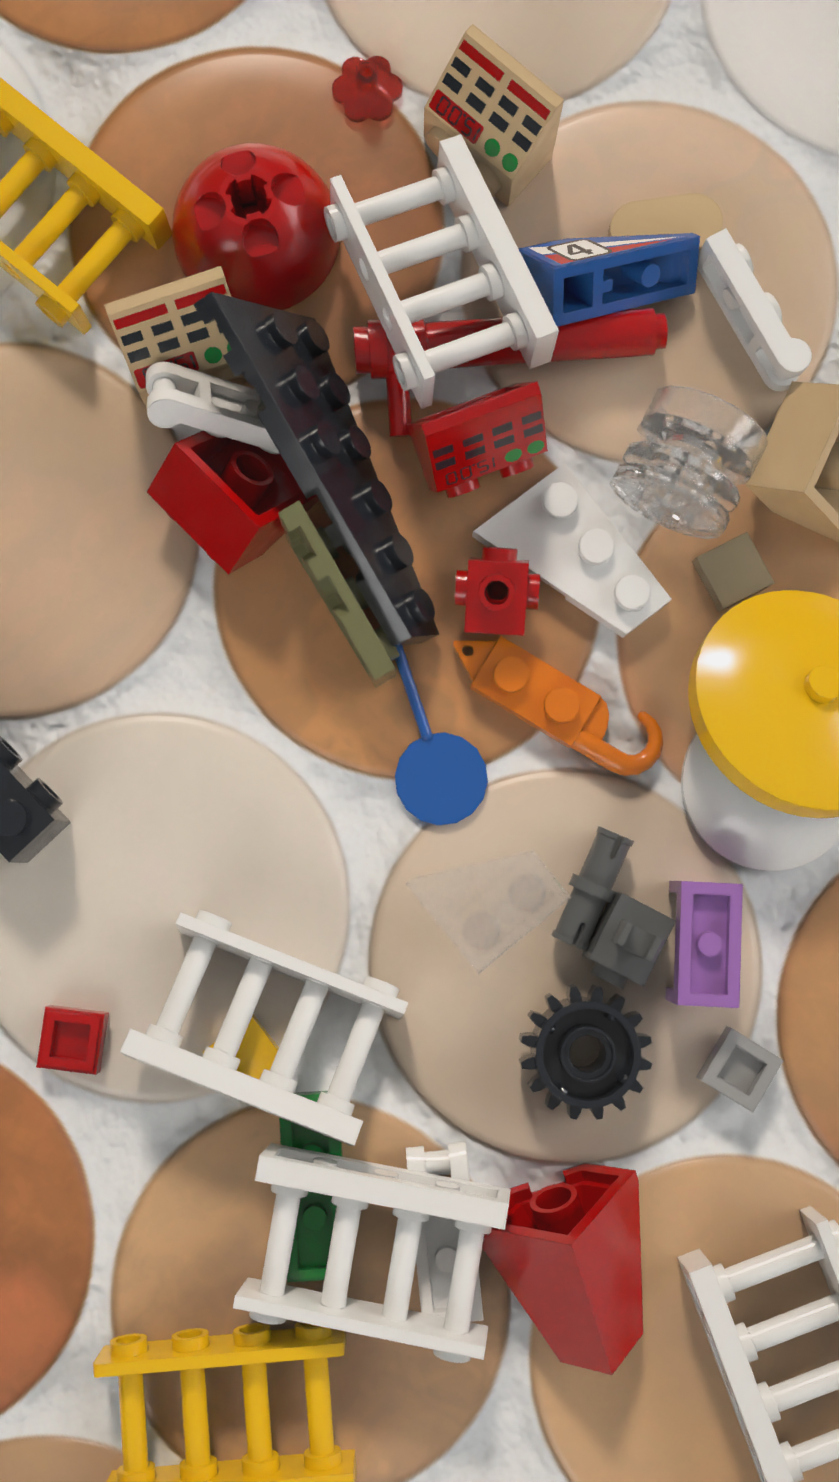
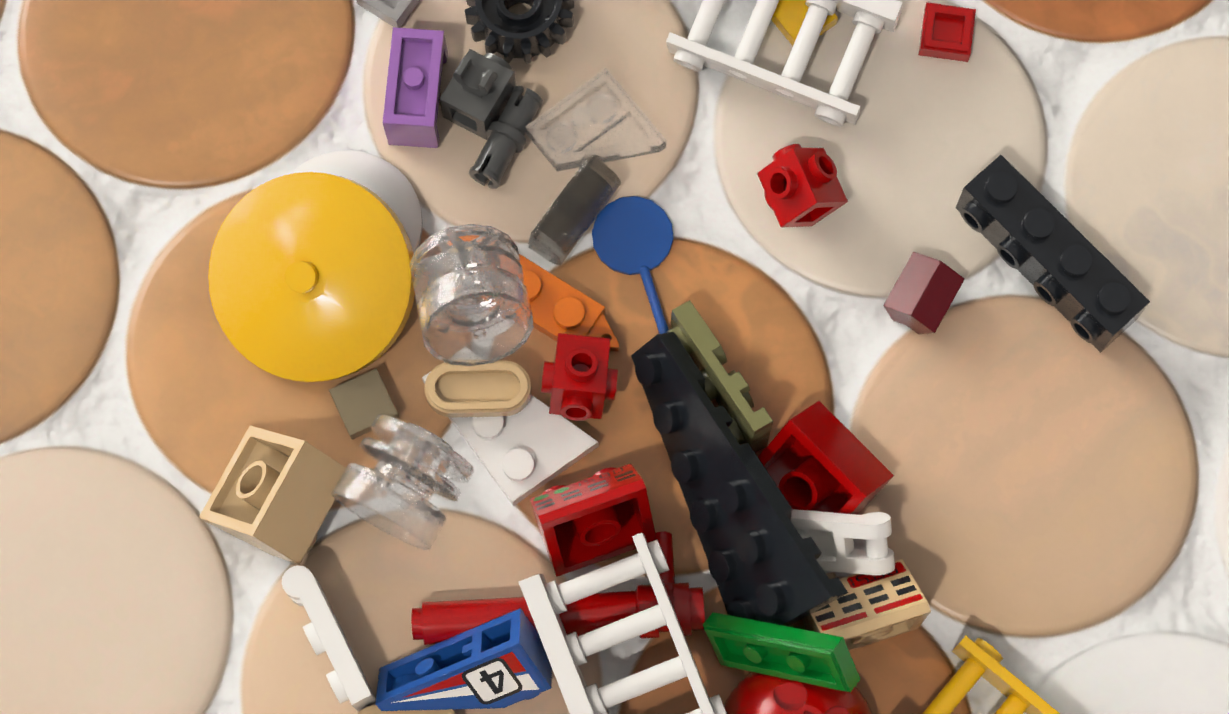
camera: 170 degrees left, 10 degrees down
(107, 707) = (923, 293): none -> piece
(246, 828) = (801, 186): none -> red brick
(268, 278) = (782, 651): none -> green tile
(510, 796) = (574, 210): none -> clear smoke brick
(610, 577) = (478, 390): none -> tan tile
(628, 664) = (471, 295): none -> clear wheel

